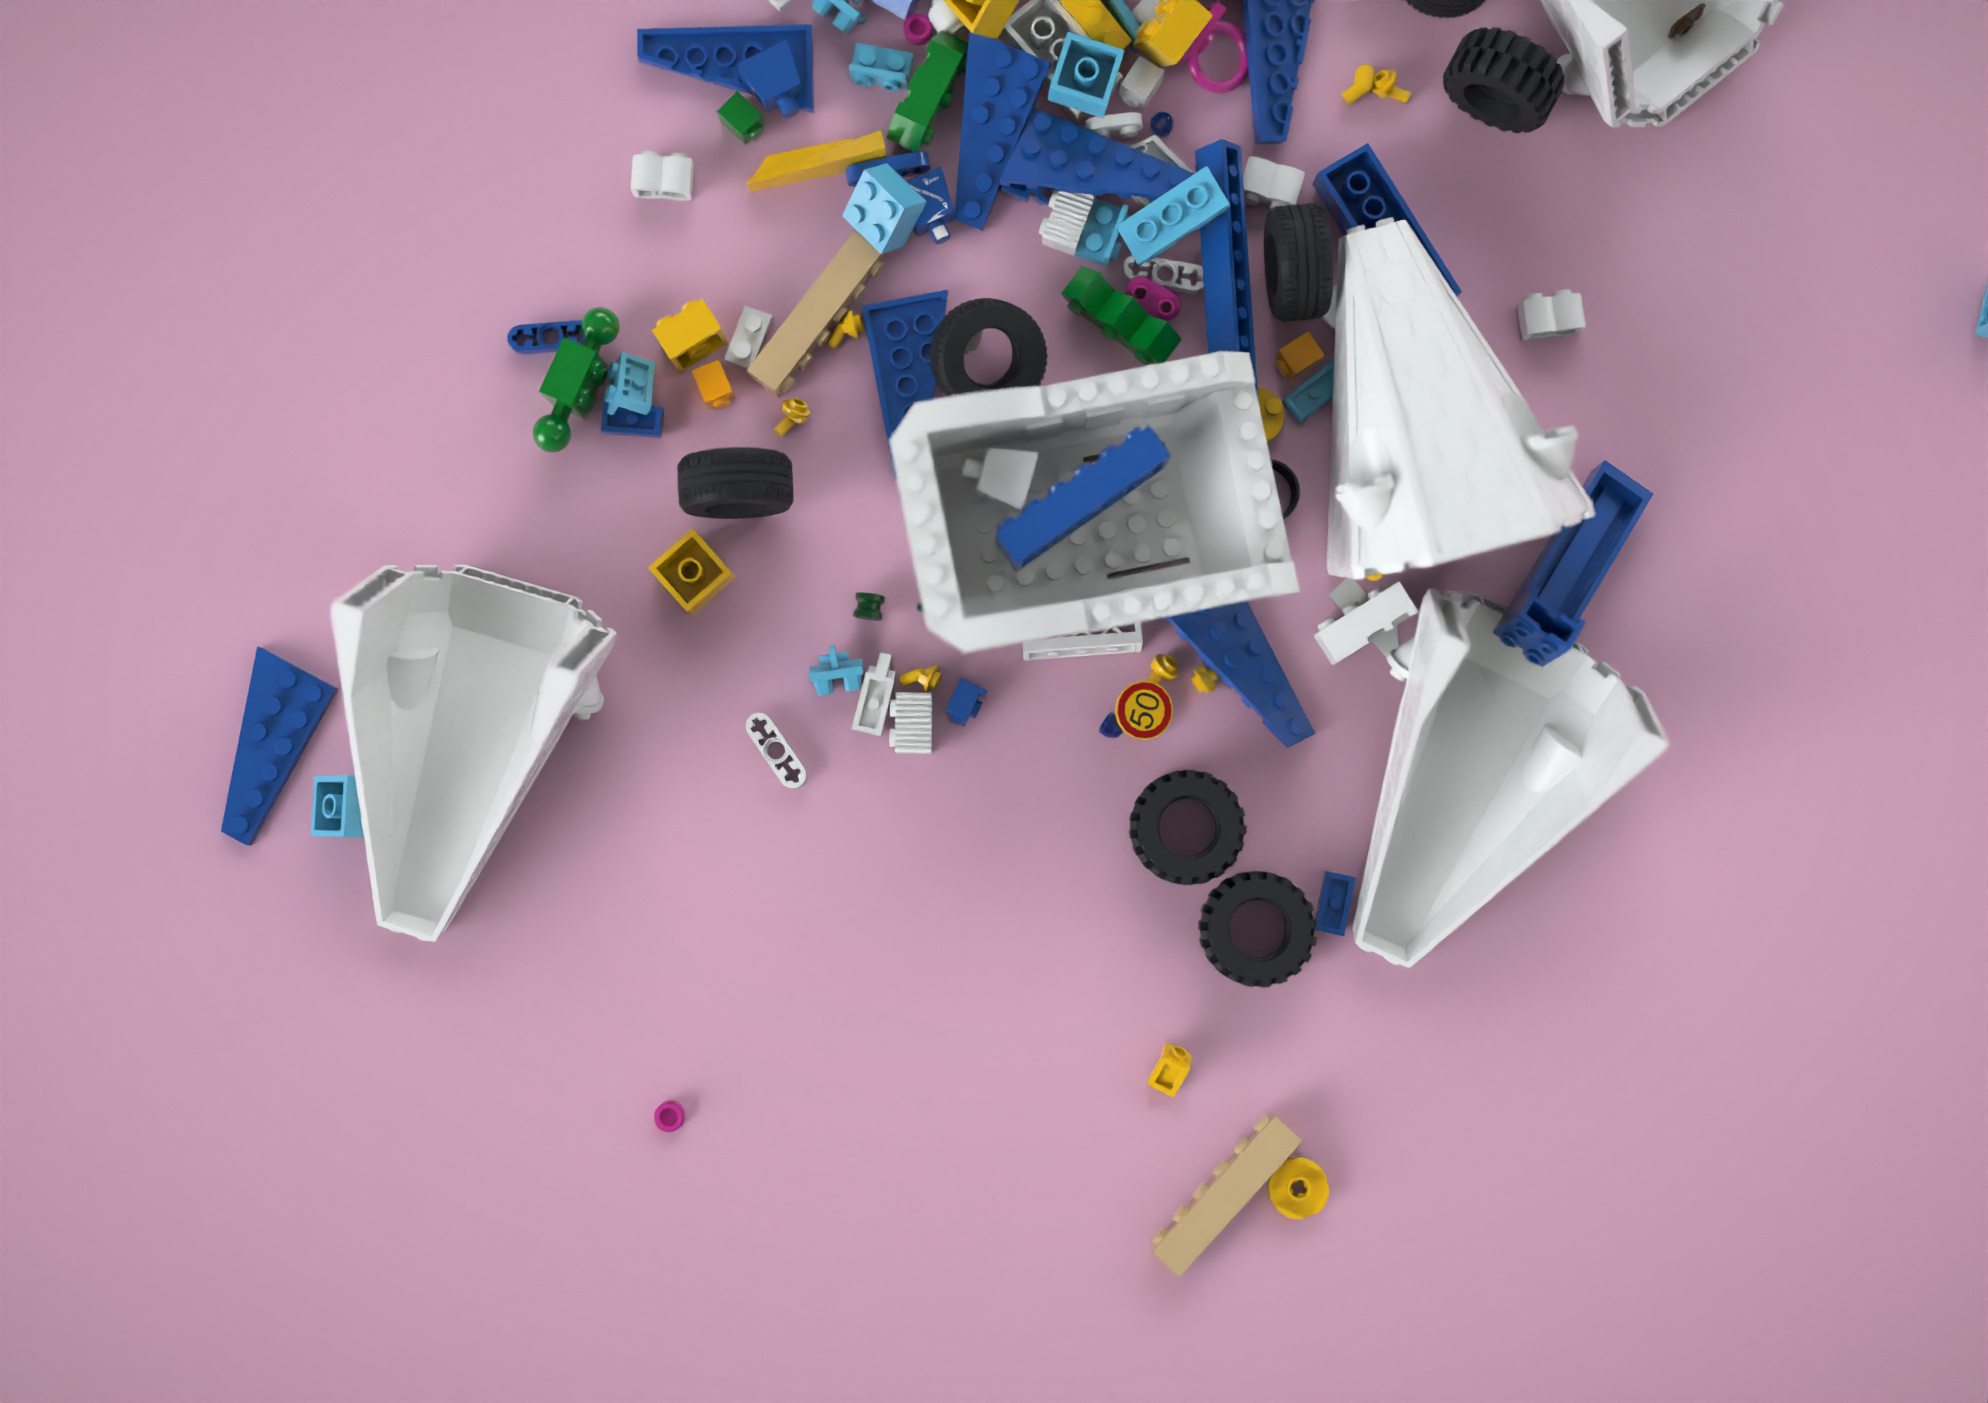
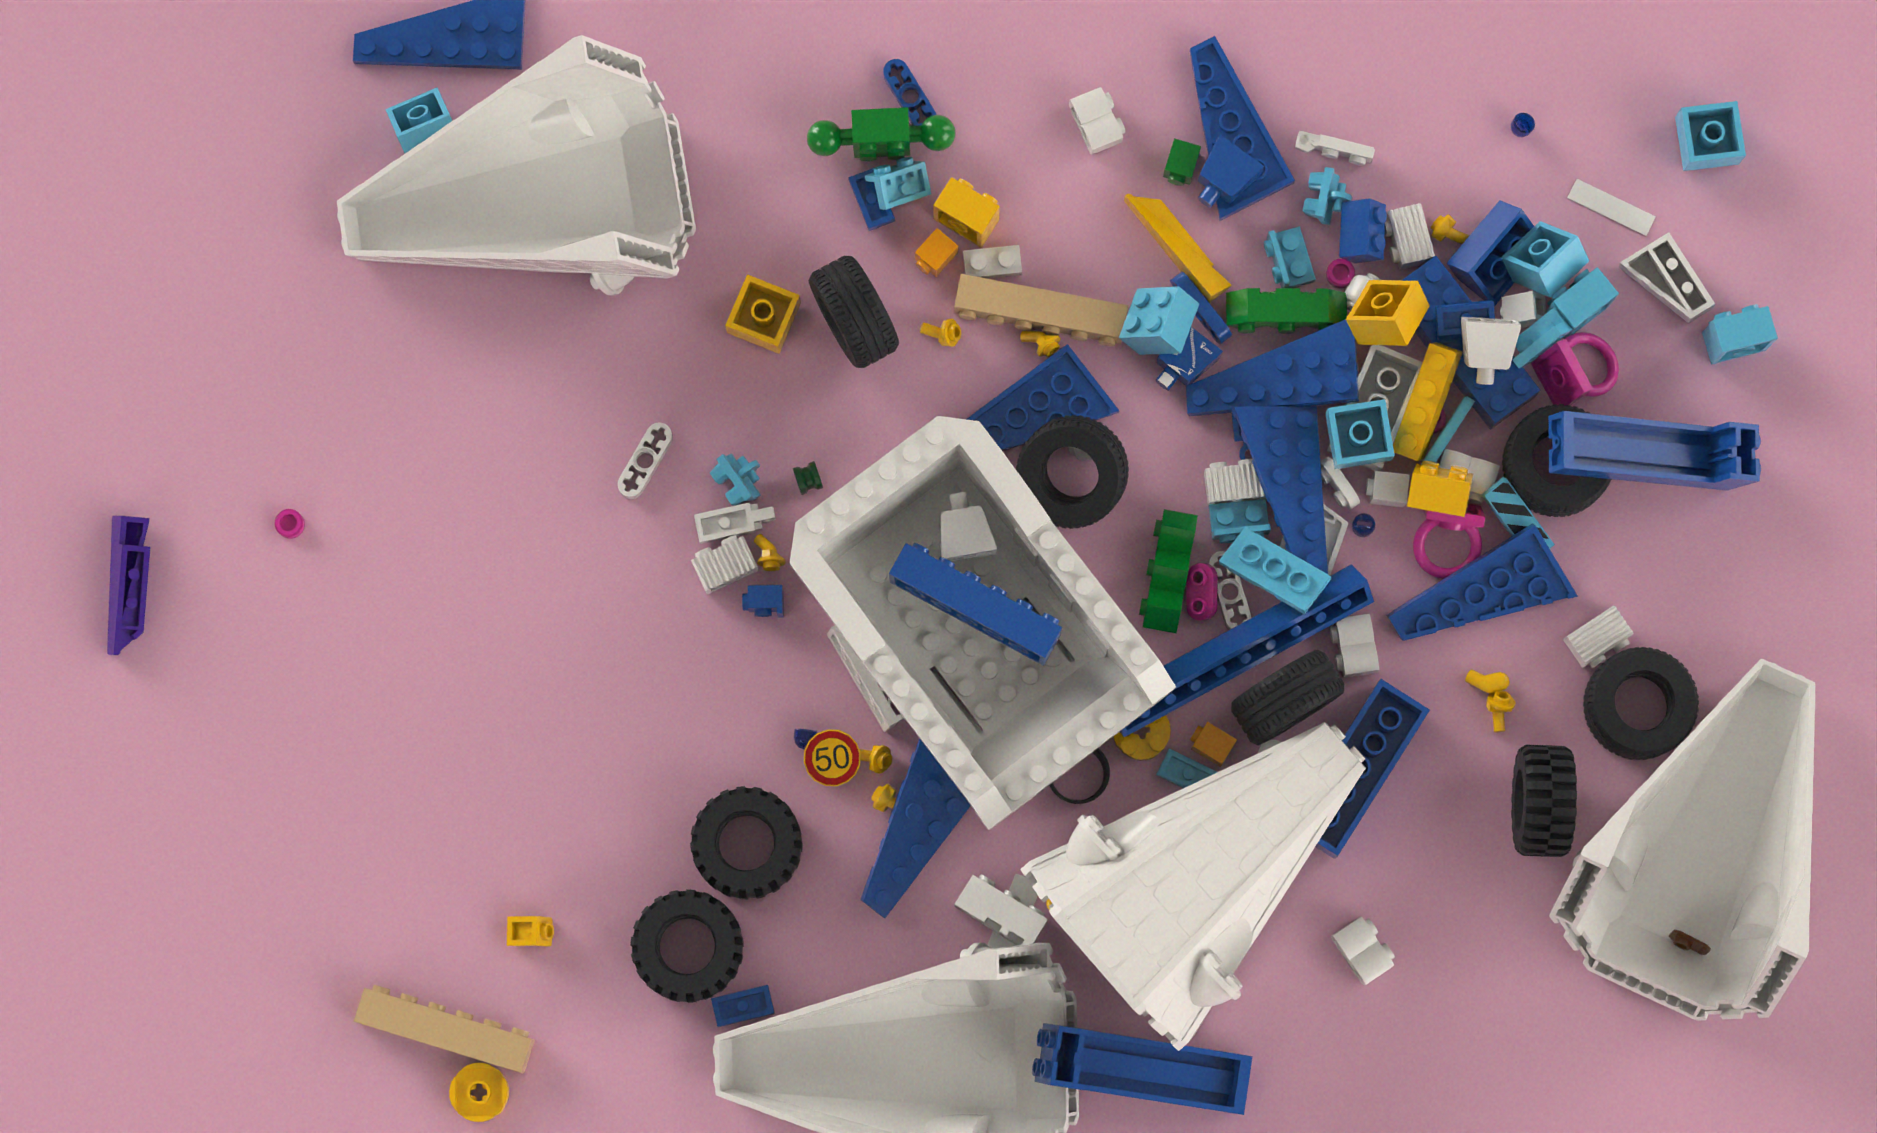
camera: 65 degrees right, 5 degrees down
(649, 1298) = (127, 581): none -> dark purple wedge

